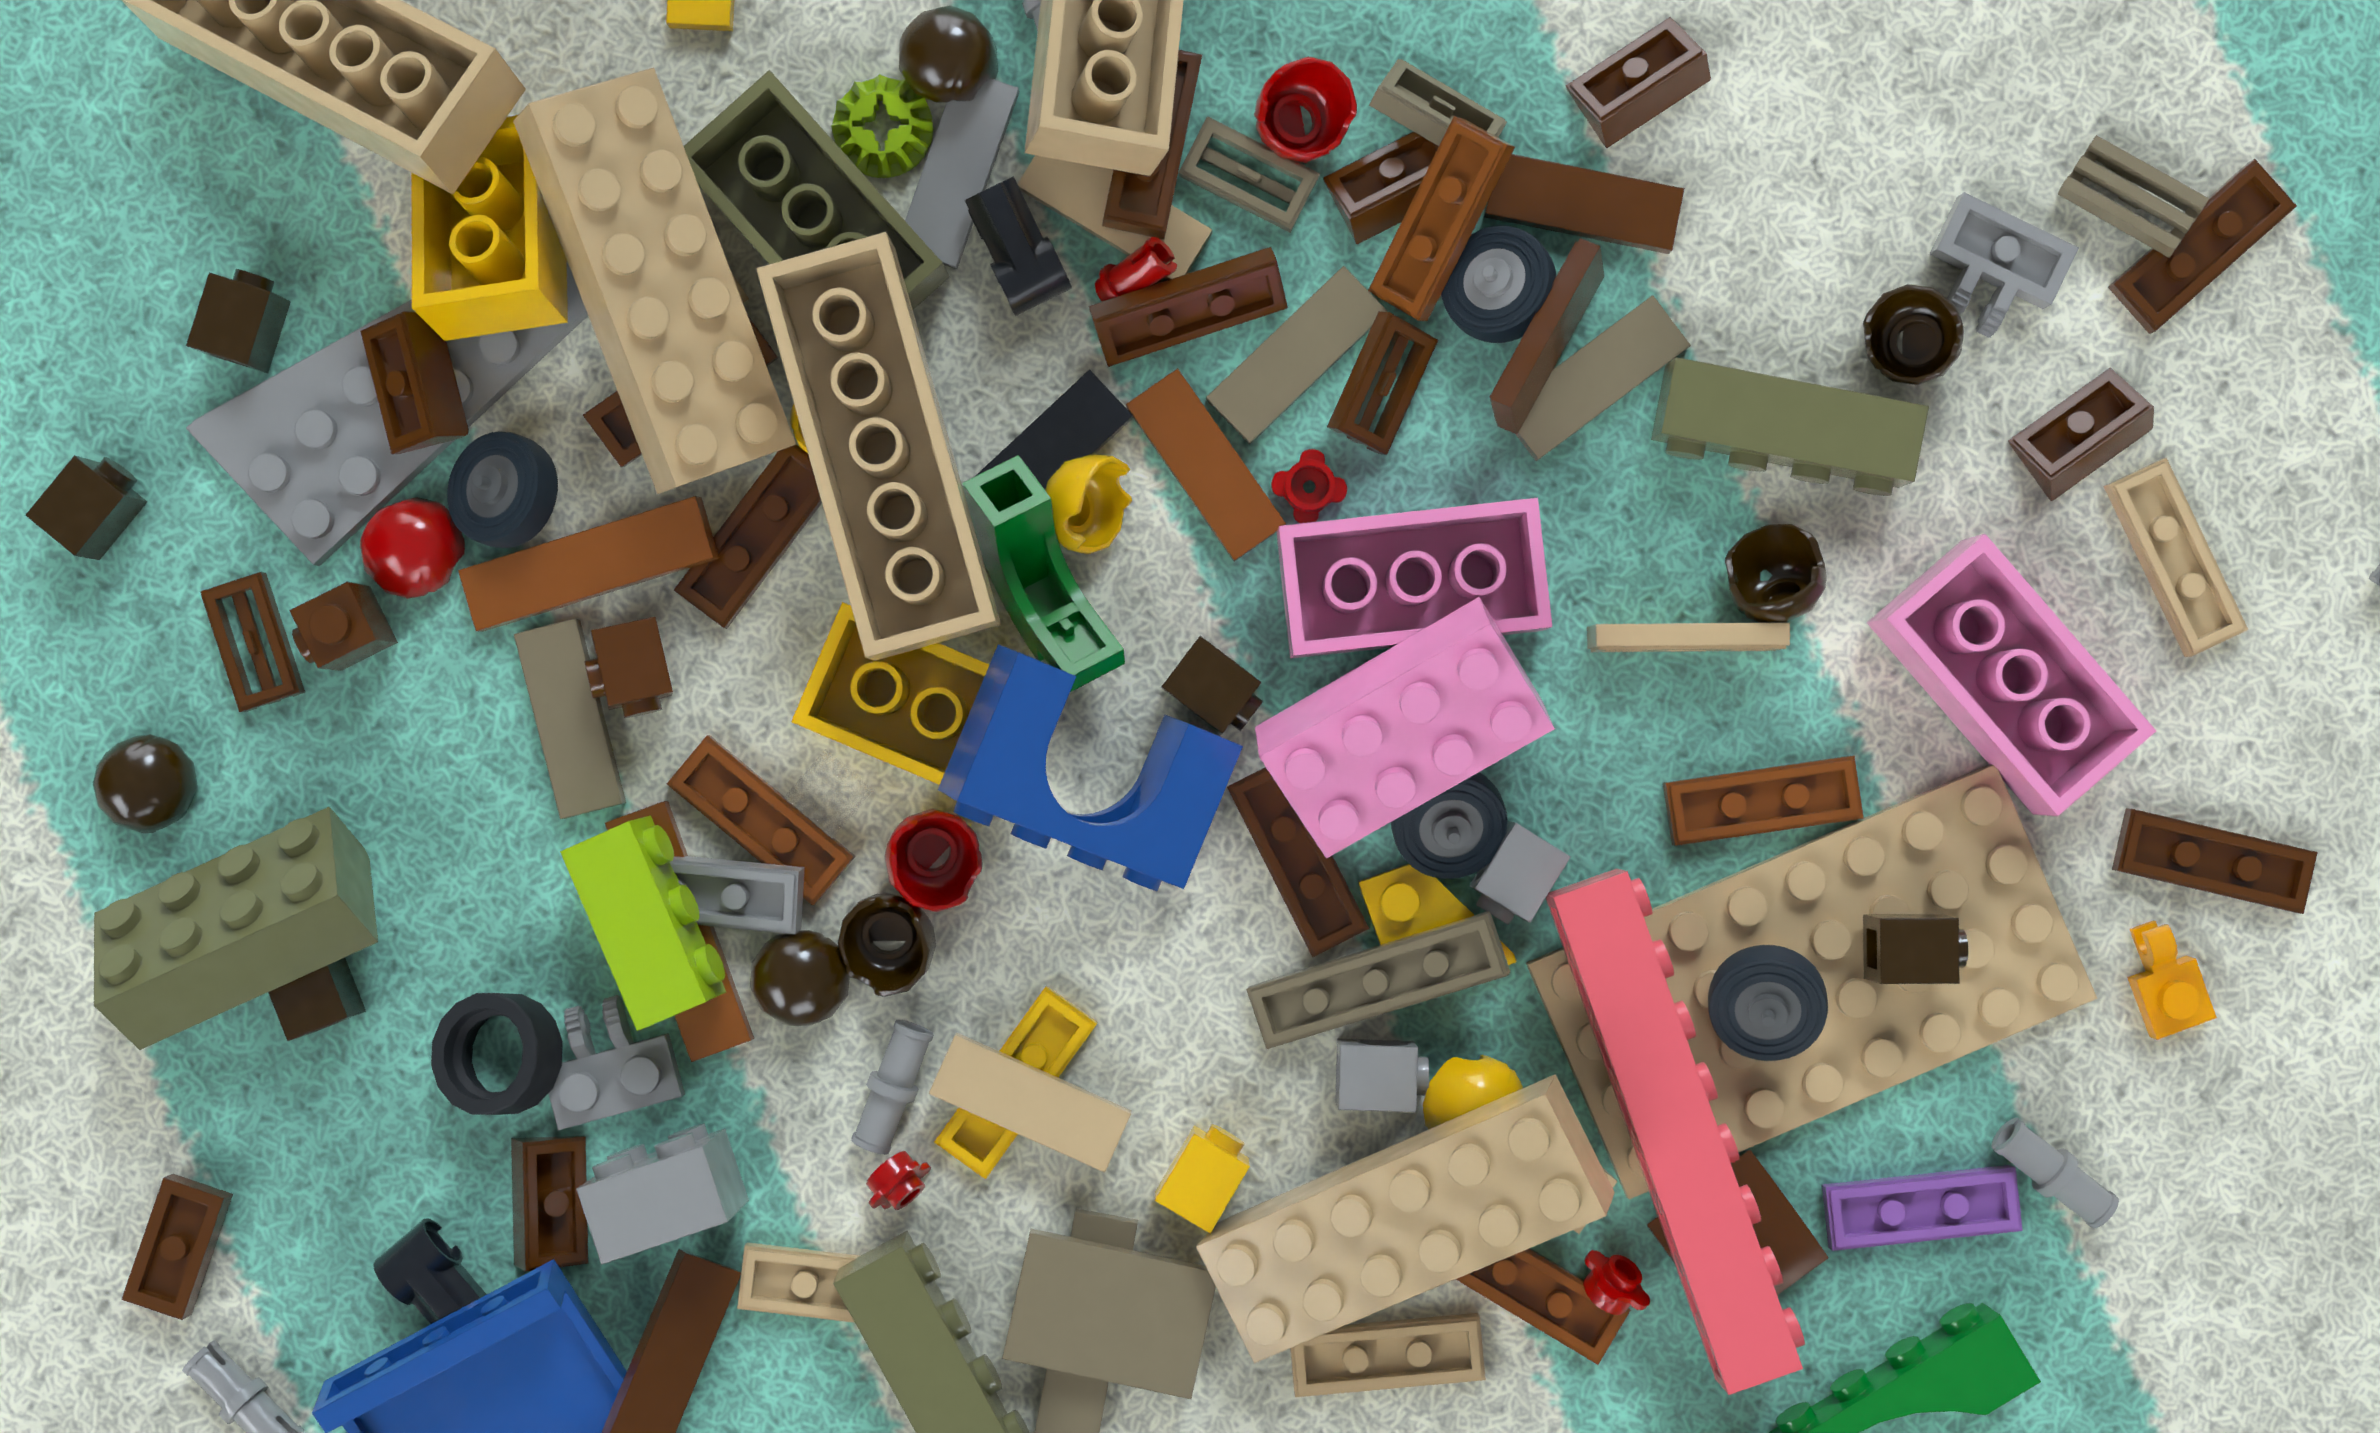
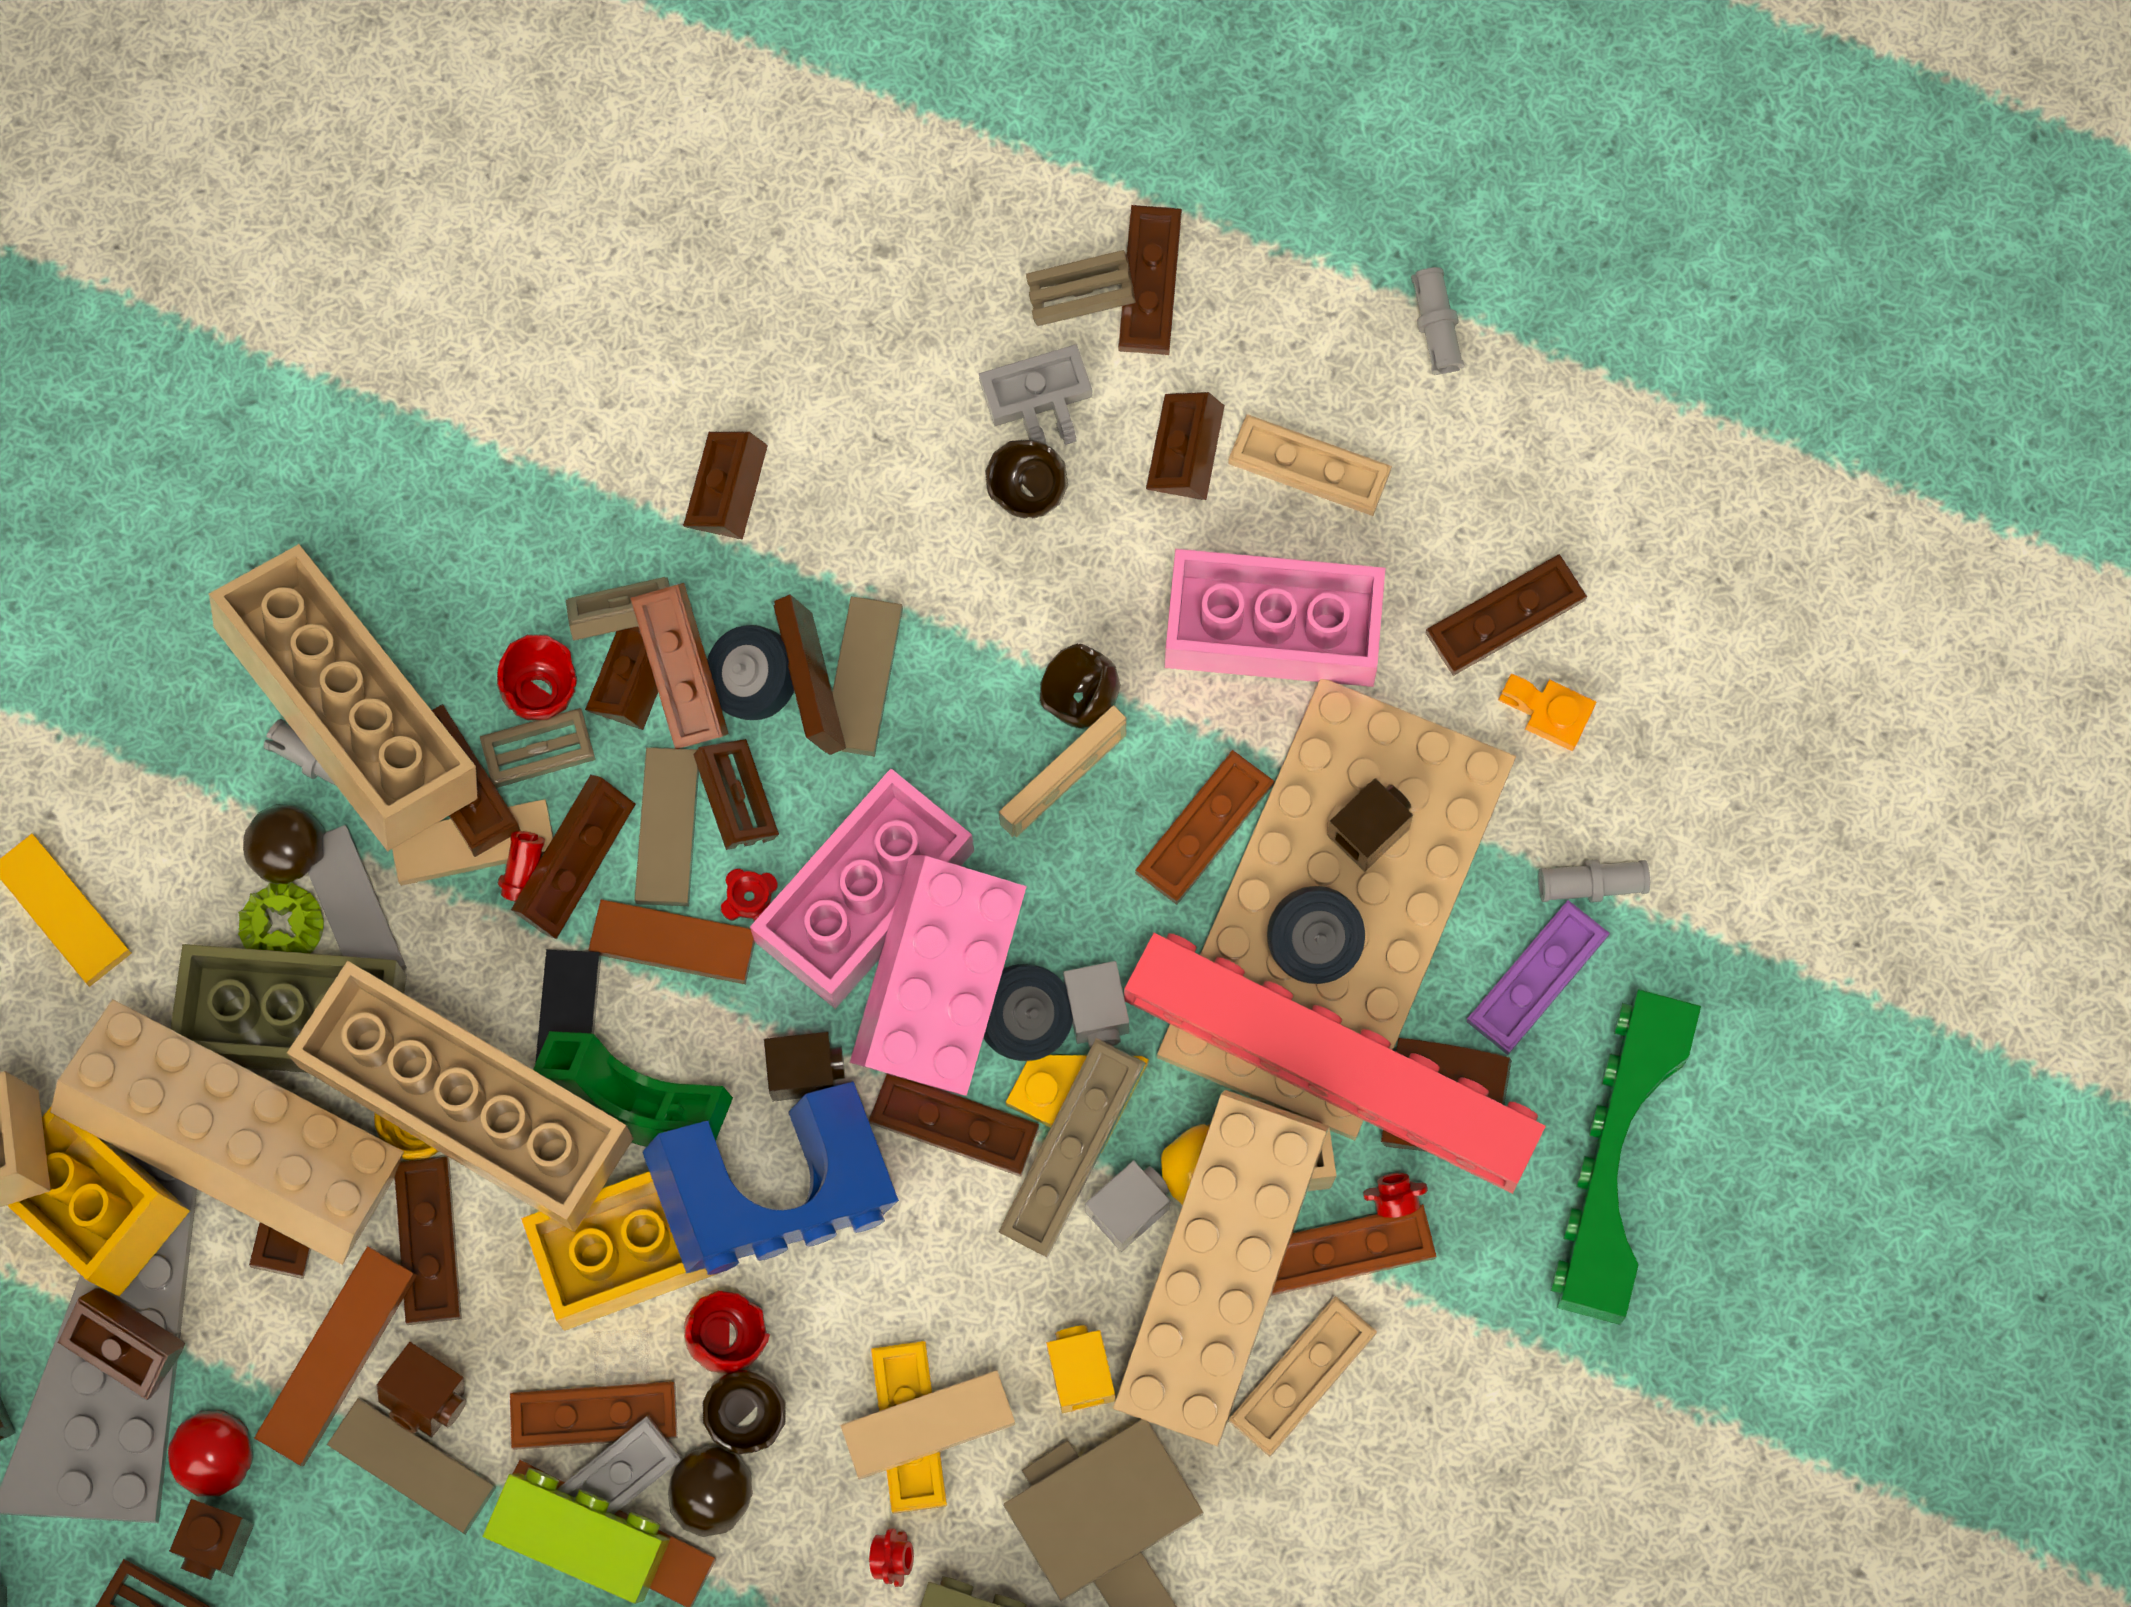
camera: 40 degrees left, 15 degrees down
(502, 490) = (238, 1359): black wheel -> none
(892, 1087) = (832, 1501): light grey pin -> none
(1022, 258) = (439, 919): black piece -> none
(1088, 502) = (620, 1024): yellow hair -> none
(1586, 203) = (760, 580): reddish brown tile -> none
(1789, 425) = (1003, 596): olive brick -> none

